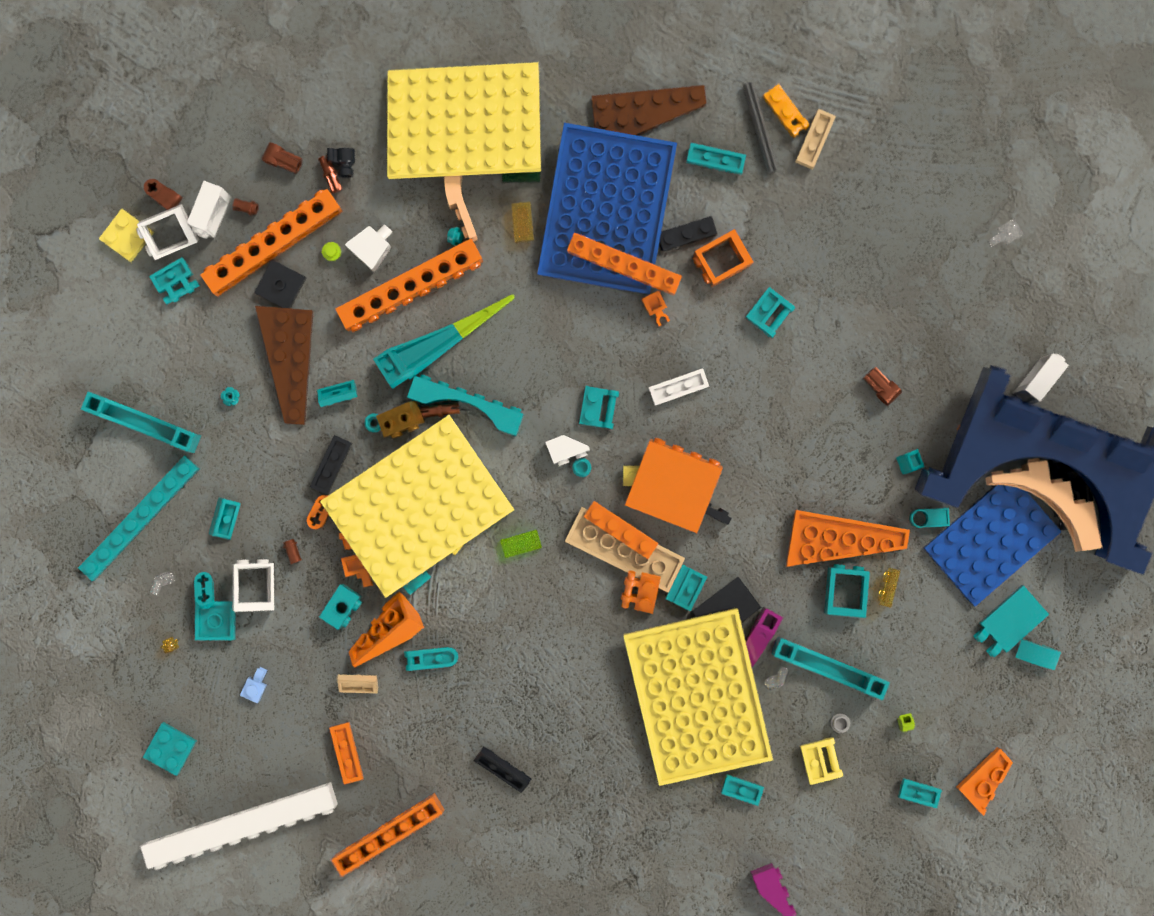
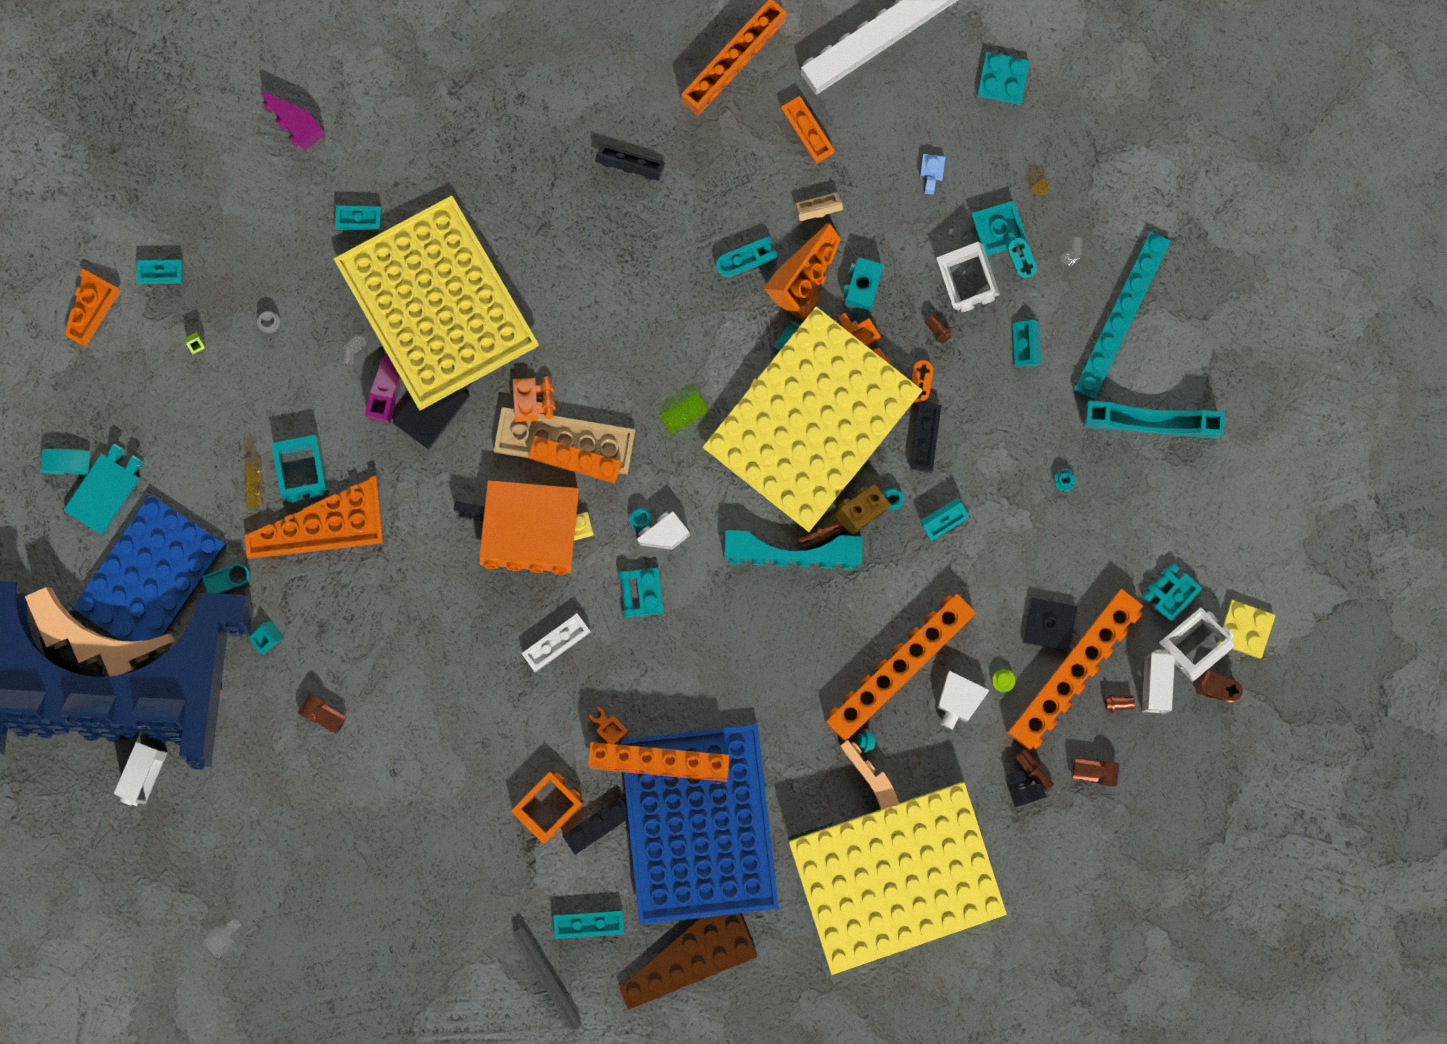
camera: 170 degrees right, 5 degrees down
(288, 348) = (1017, 556): reddish brown wing -> none
(415, 355) = (871, 585): teal plate -> none
(522, 222) = (793, 781): clear yellow plate -> none
(686, 587) = (482, 419): teal plate -> none
(764, 309) = (481, 764): teal plate -> none
(785, 110) = (523, 1009): light orange plate -> none
(815, 139) = (478, 984): tan plate -> none
(815, 762) = (284, 269): light yellow plate -> none
(830, 668) = (322, 380): teal arch -> none

